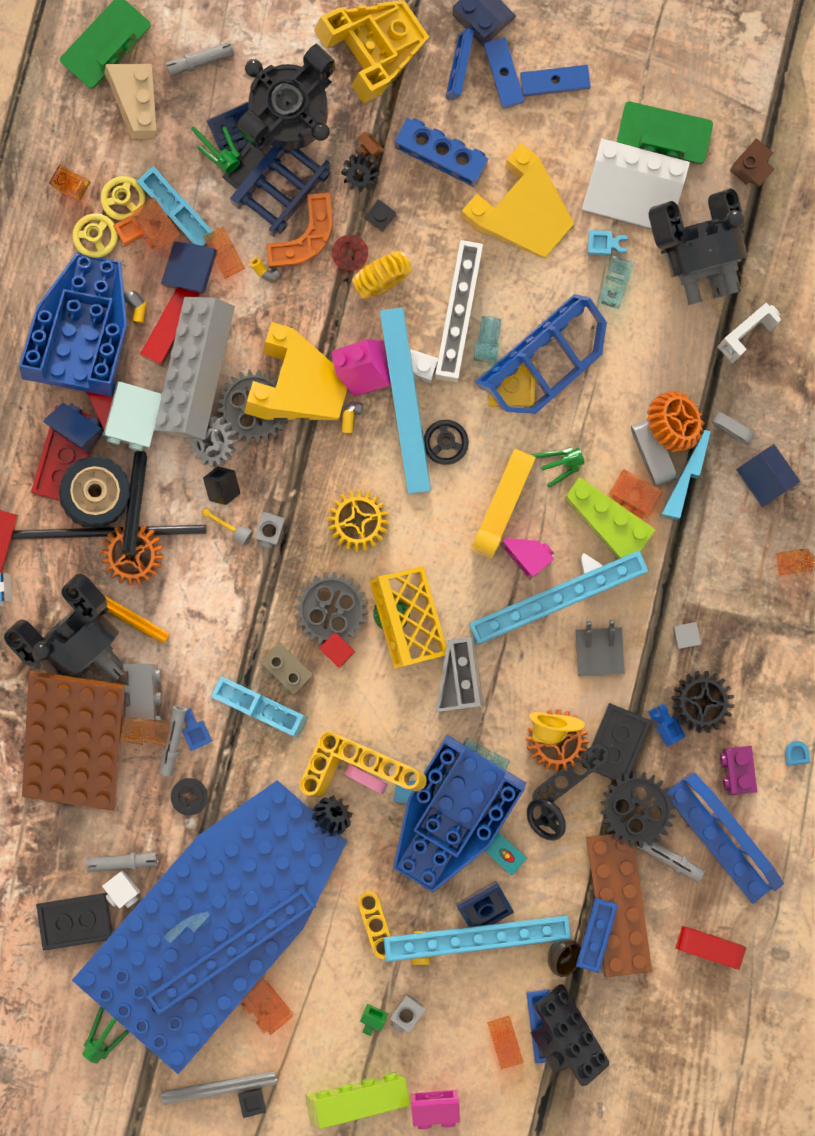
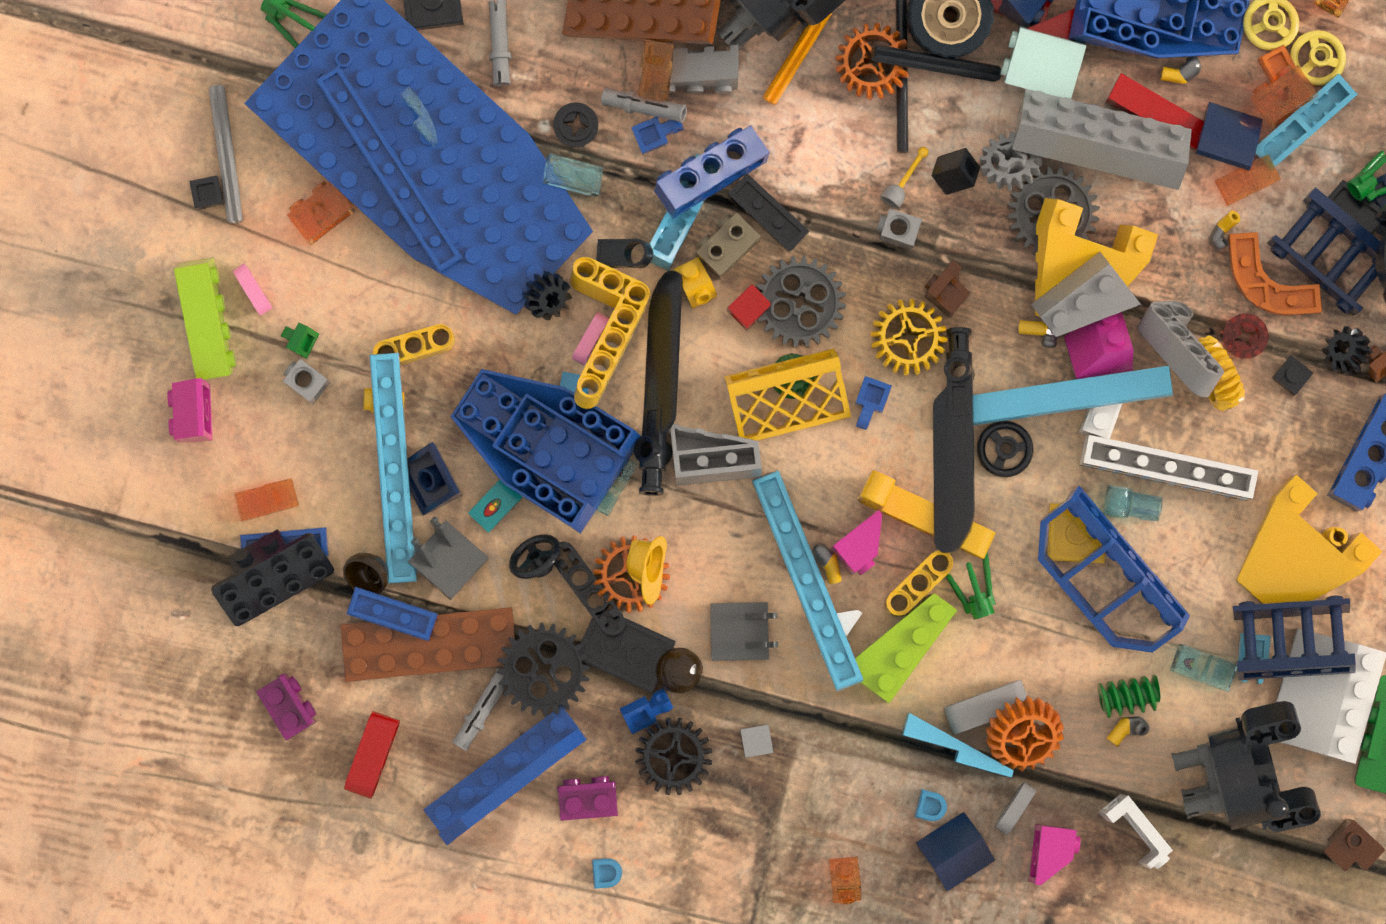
camera: 90 degrees right, 0 degrees up
(121, 890) = (465, 41): white brick -> none
(231, 797) = (573, 175): none -> clear light blue plate
(251, 709) = (680, 199): none -> brick
(259, 636) = (768, 213): none -> black plate
(295, 758) = (617, 253): none -> black piece
(317, 694) = (696, 283): none -> yellow bracket
(319, 491) = (946, 290): none -> reddish brown brick
(325, 379) = (1085, 297): none -> light grey wedge
(332, 1061) = (252, 289): none -> bright pink beam
(364, 303) = (1167, 333): none -> light grey beam
(400, 721) = (660, 382): none -> black piece
(408, 548) = (872, 398): none -> blue plate
(448, 481) = (954, 448): none -> black piece
(509, 175) = (1341, 534): none -> yellow pin
(540, 582) = (828, 560): none -> arm
(549, 891) = (447, 558): none -> dark grey plate
(559, 519) = (906, 590): none -> yellow beam
(614, 220) = (1281, 664): none -> dark blue fence
(633, 699) = (679, 670): none -> dark brown piece
(641, 339) = (1130, 695): none -> green piece
(648, 494) = (949, 672): clear orange brick -> none
(664, 340) = (1128, 726): none -> arm
(673, 1019) = (287, 706): none -> magenta bracket
(733, 495) = (930, 806): none -> dark azure tile
(768, 398) = (1051, 851): none -> dark pink slope

